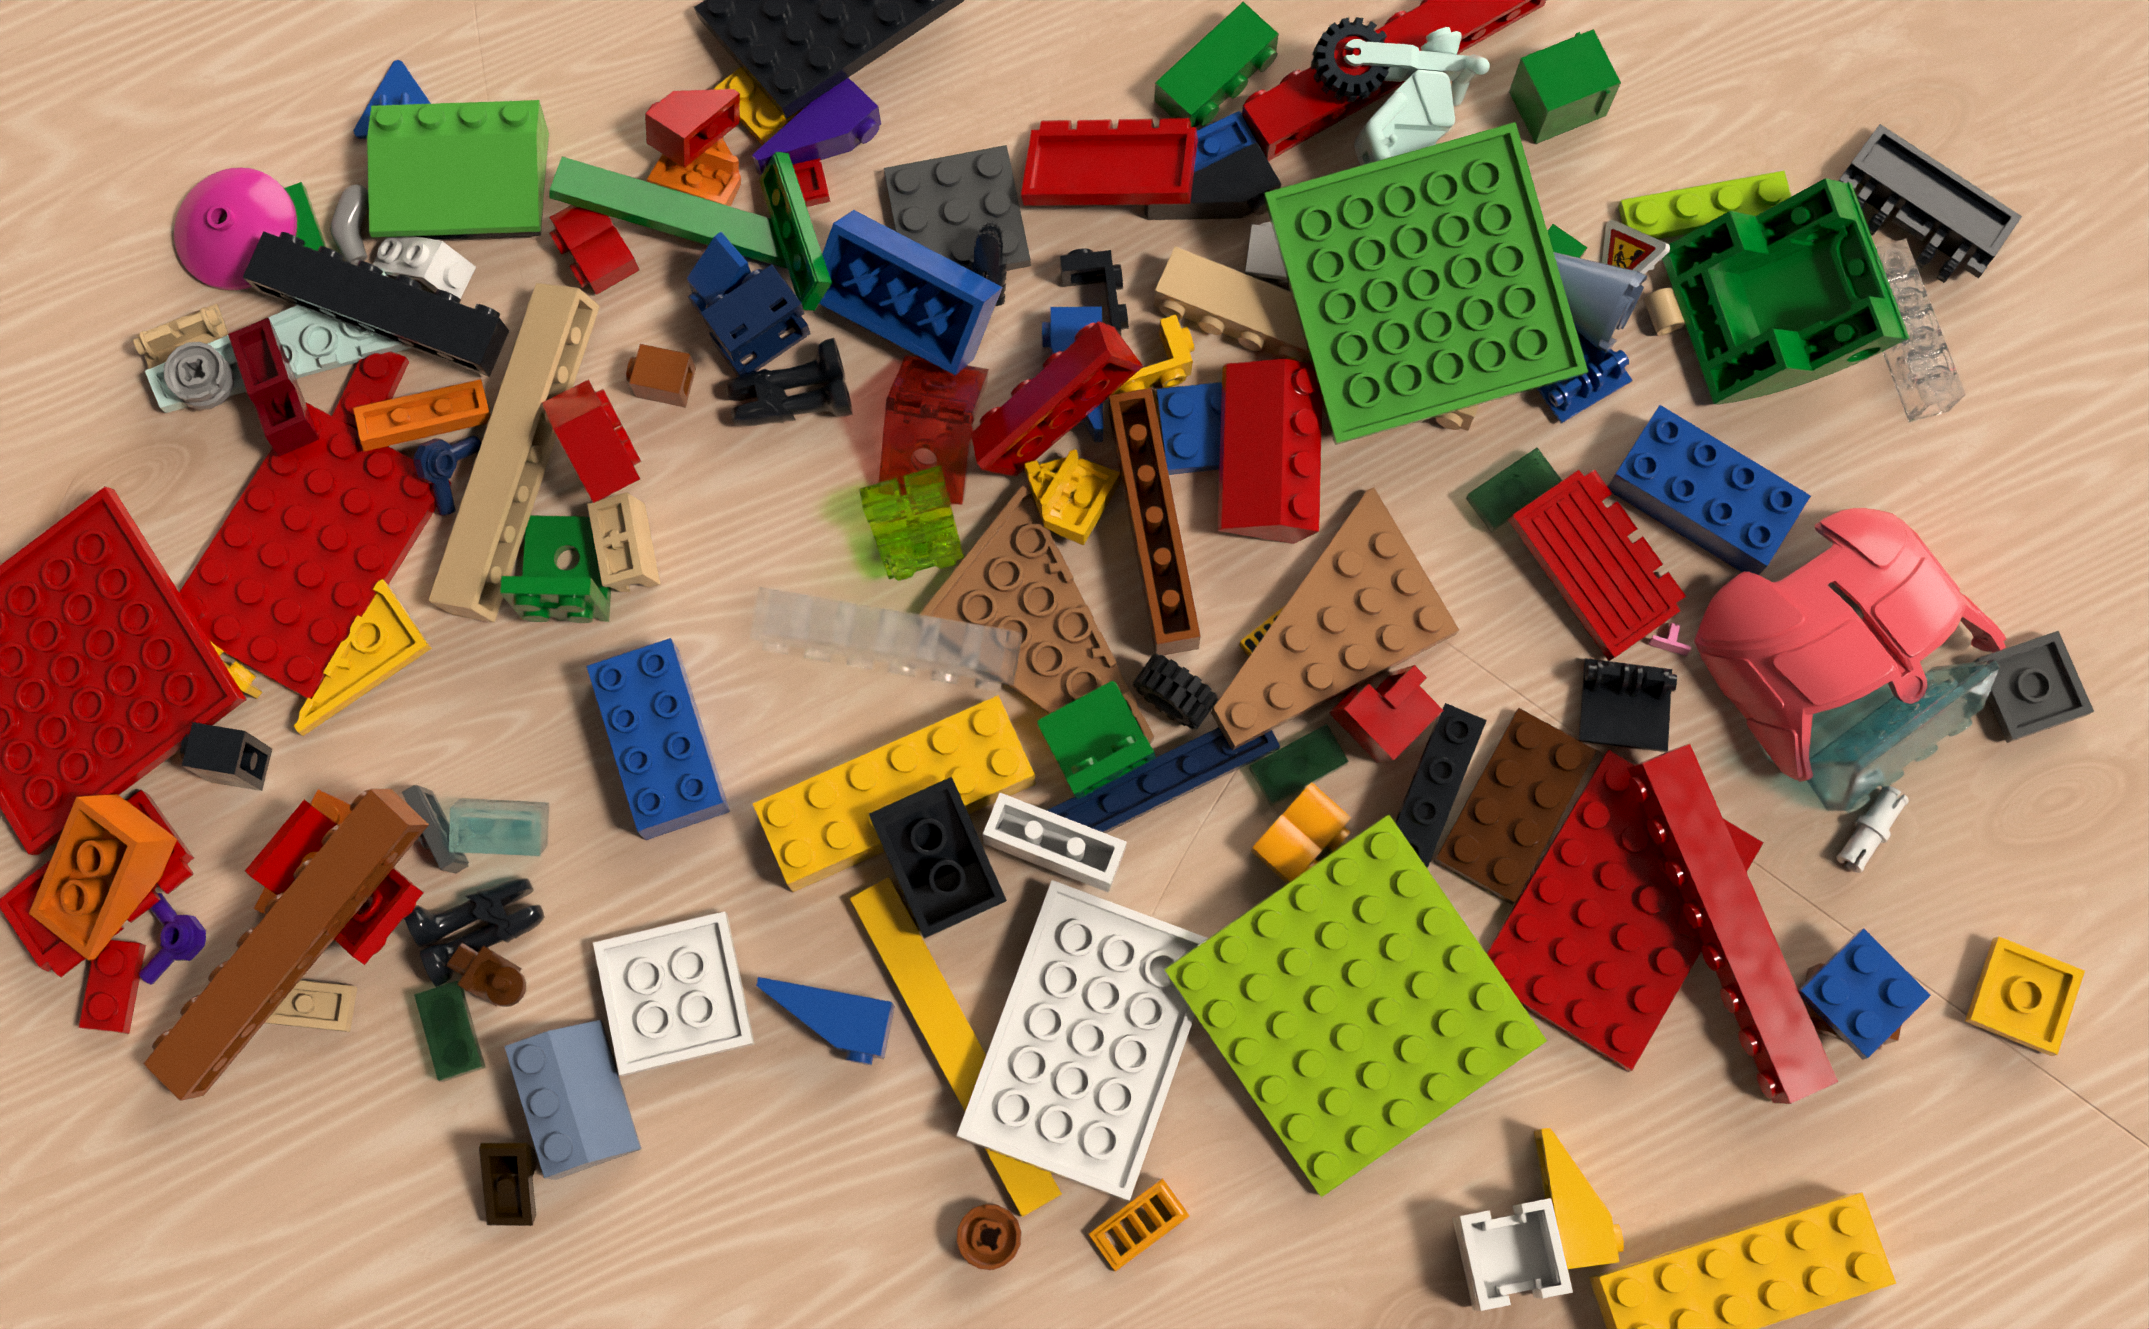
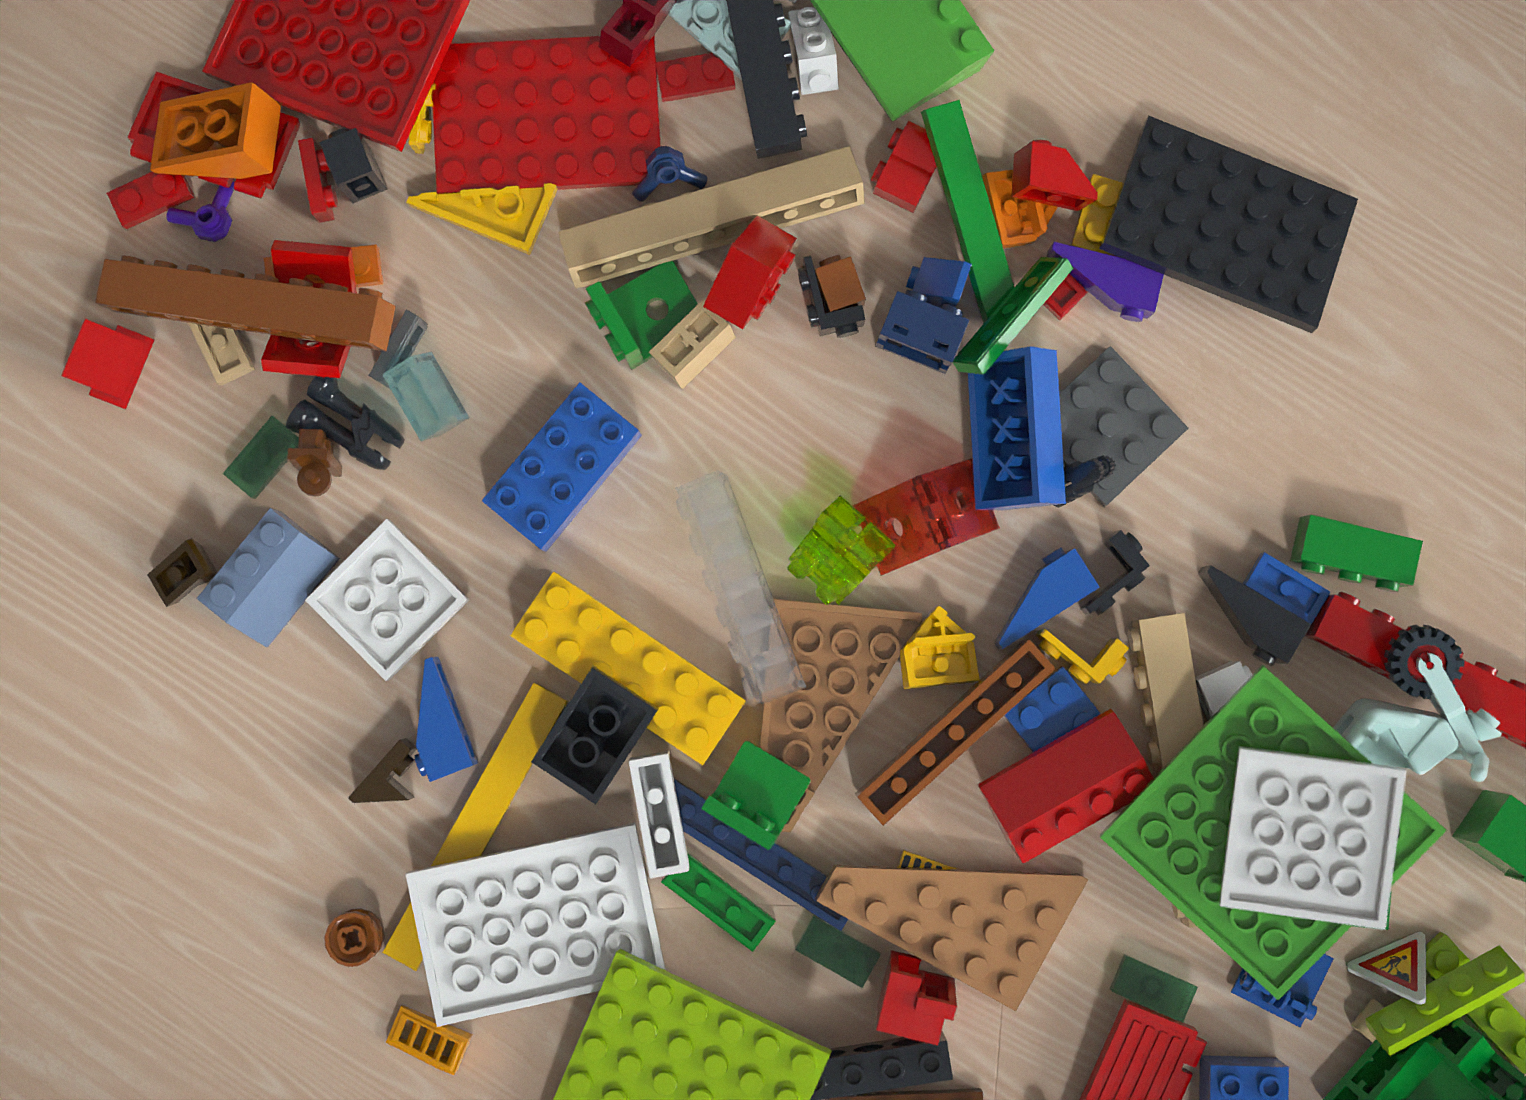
camera: 55 degrees right, 10 degrees up
(200, 799) = (320, 194): none -> red plate
(244, 1130) = (108, 361): none -> red plate
(422, 415) = (696, 129): orange plate -> none
(697, 392) = (842, 322): none -> black bracket
(776, 406) = (869, 390): black piece -> none
(851, 1114) = (380, 784): none -> dark brown slope
(1054, 400) = (999, 599): red slope -> none
(1110, 165) = (1220, 520): red hinge -> none
(1175, 691) = (832, 829): black tyre -> none
(1181, 850) = (721, 903): none -> green tile
(1302, 834) = (783, 988): light orange brick -> none
(1449, 243) = (1312, 837): none -> white plate
(1599, 297) = (1348, 970): sand blue cone -> none
(1682, 228) = (1446, 1000): none -> lime plate

